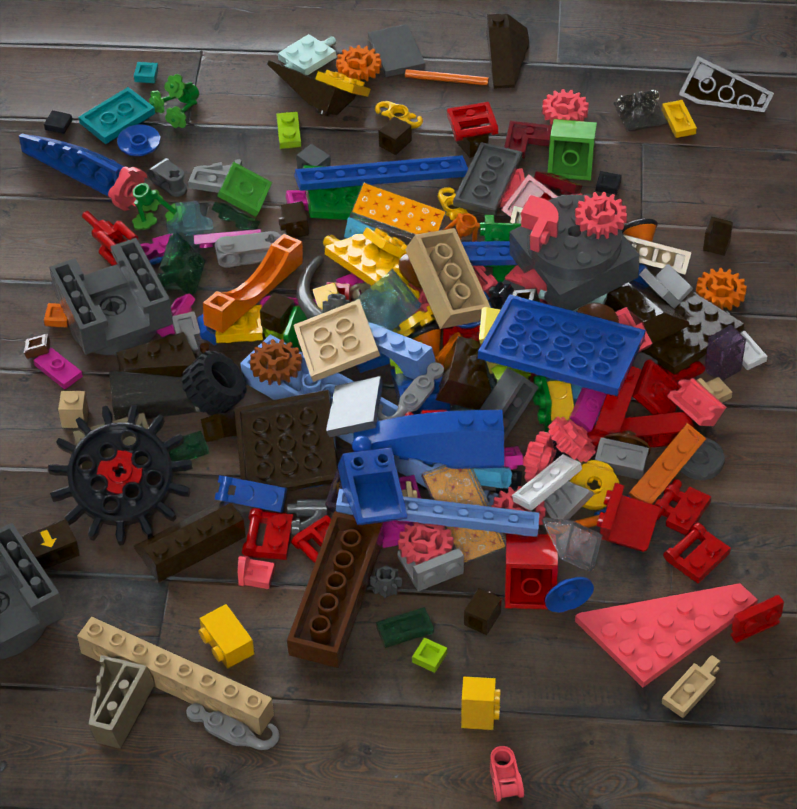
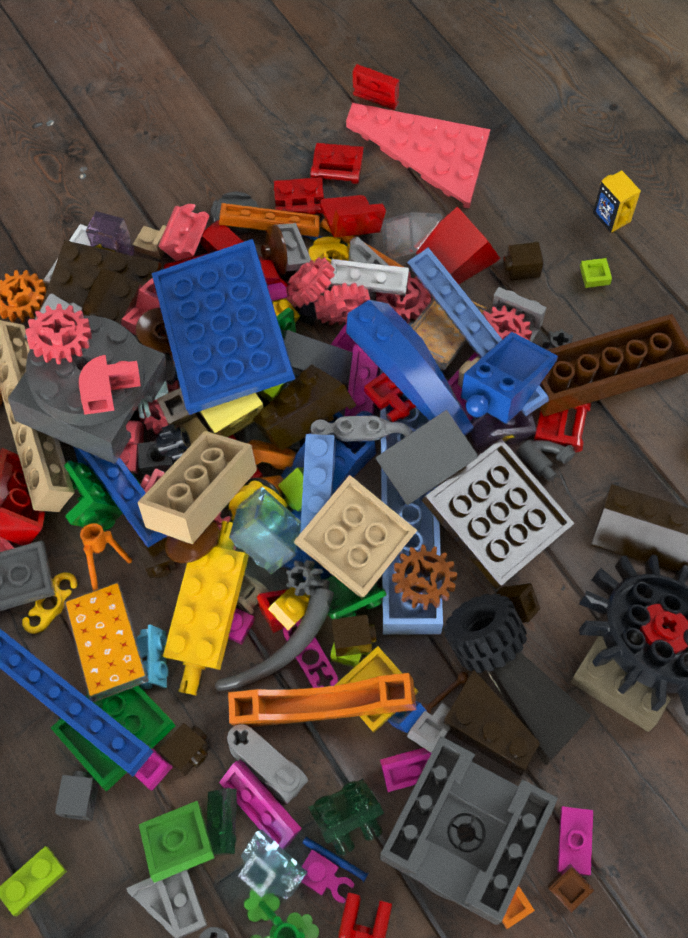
camera: 125 degrees left, 15 degrees up
(72, 406) = (618, 764): tan brick -> none
(193, 447) = (562, 625): clear green plate -> none
(252, 494) = (571, 511): blue plate -> none
(255, 572) = (636, 456): coral tile -> none
(276, 536) = (586, 468): red plate -> none
(382, 240) = (169, 600): yellow plate -> none
(404, 627) = (587, 306): clear green plate -> none
(505, 778) = (648, 163): coral piece -> none
(569, 594) = (466, 200): blue dish -> none
(691, 687) = (466, 99): tan plate -> none

